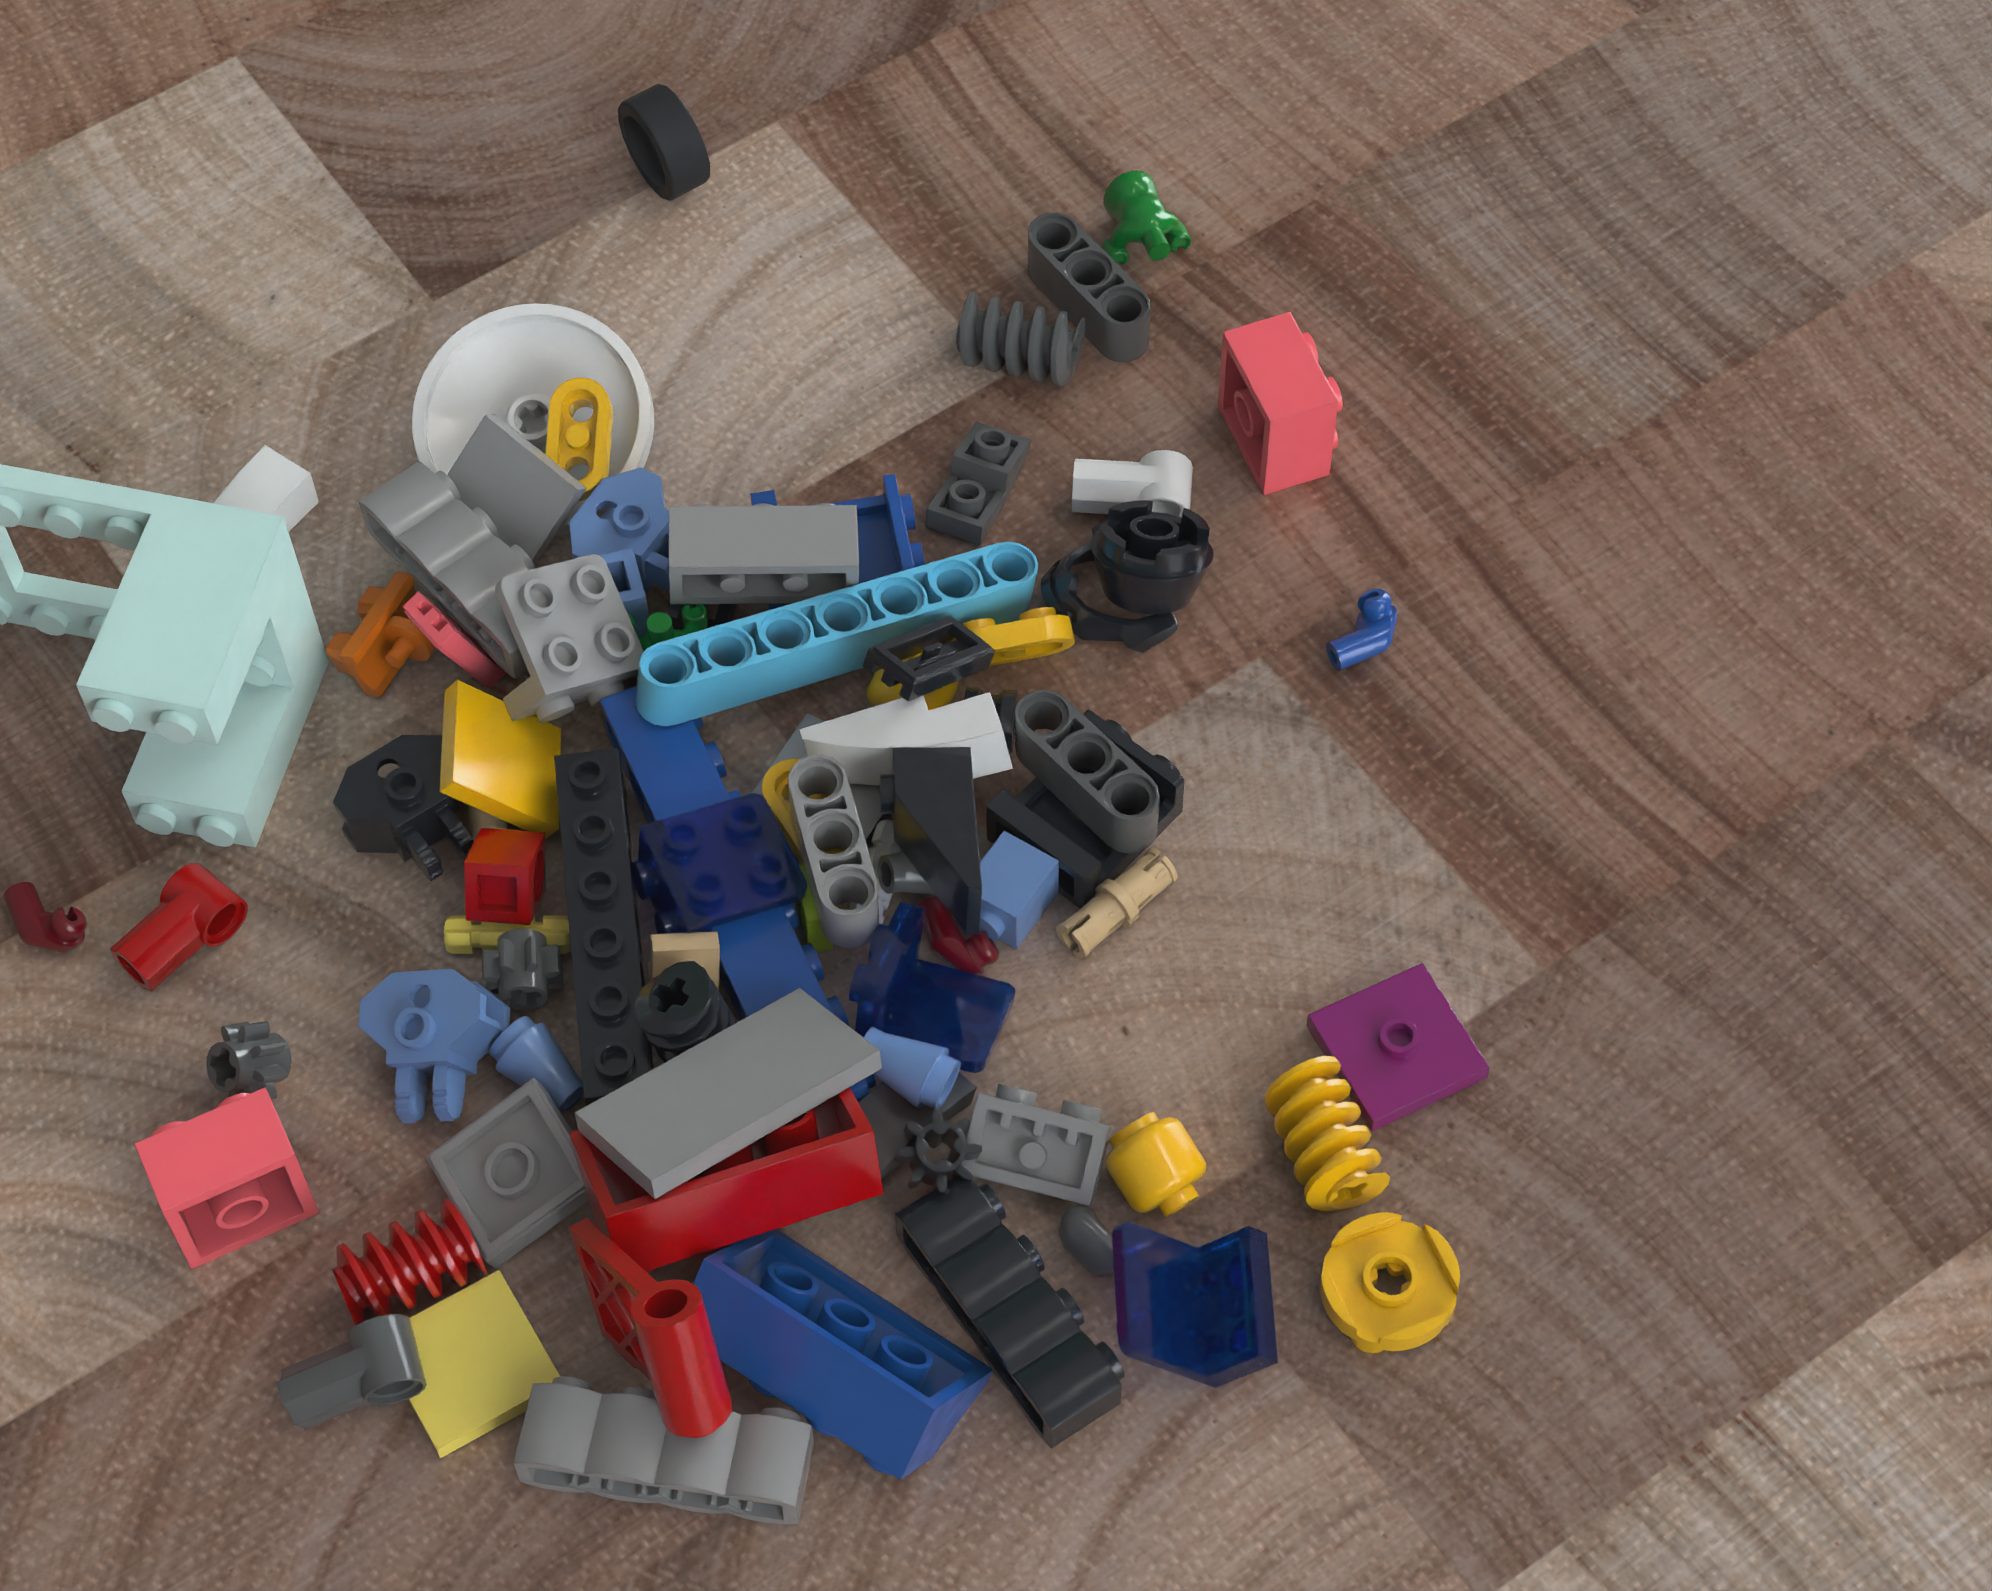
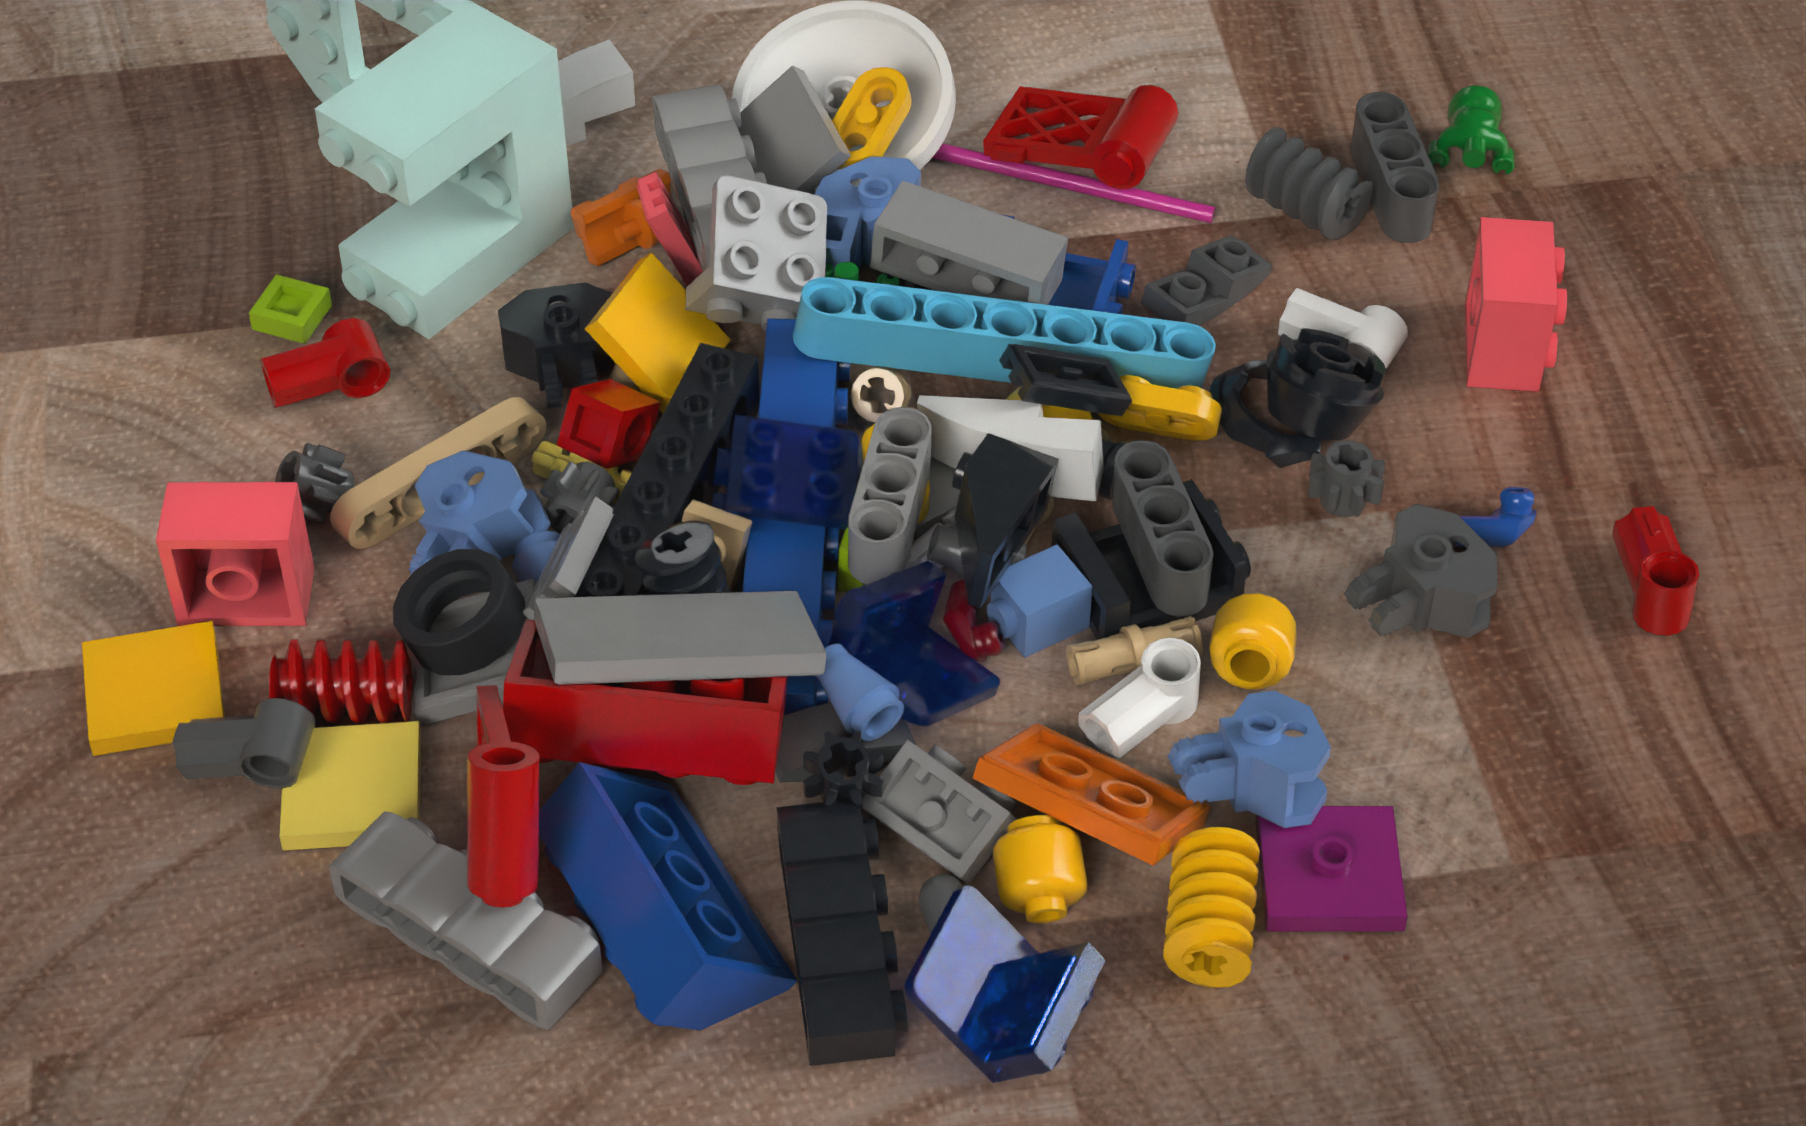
camera: 25 degrees right, 10 degrees down
(42, 928) = (224, 329): dark red arm -> none
(102, 876) = (290, 309): none -> lime plate
(212, 1348) = (149, 684): none -> yellow tile
(336, 1038) = (379, 503): none -> tan beam
(445, 1124) = (477, 640): none -> black tyre
(565, 1049) = (572, 555): none -> light grey tile
(733, 746) = (893, 380): none -> tan bush
(798, 417) = (1077, 183): none -> dark pink axle
(824, 360) = (1117, 141): none -> red piece
(1155, 953) = (1152, 695): none -> white piece
(1164, 1069) = (1091, 792): none -> orange tile
(1215, 644) = (1346, 478): none -> dark grey gear
(1221, 850) = (1253, 641): none -> yellow head
(1294, 974) = (1257, 762): none -> medium blue hinge
(1342, 720) = (1426, 579): none -> dark grey hinge
(1374, 1317) = (1199, 1093): yellow plate -> none
(1538, 633) = (1657, 571): none -> red piece

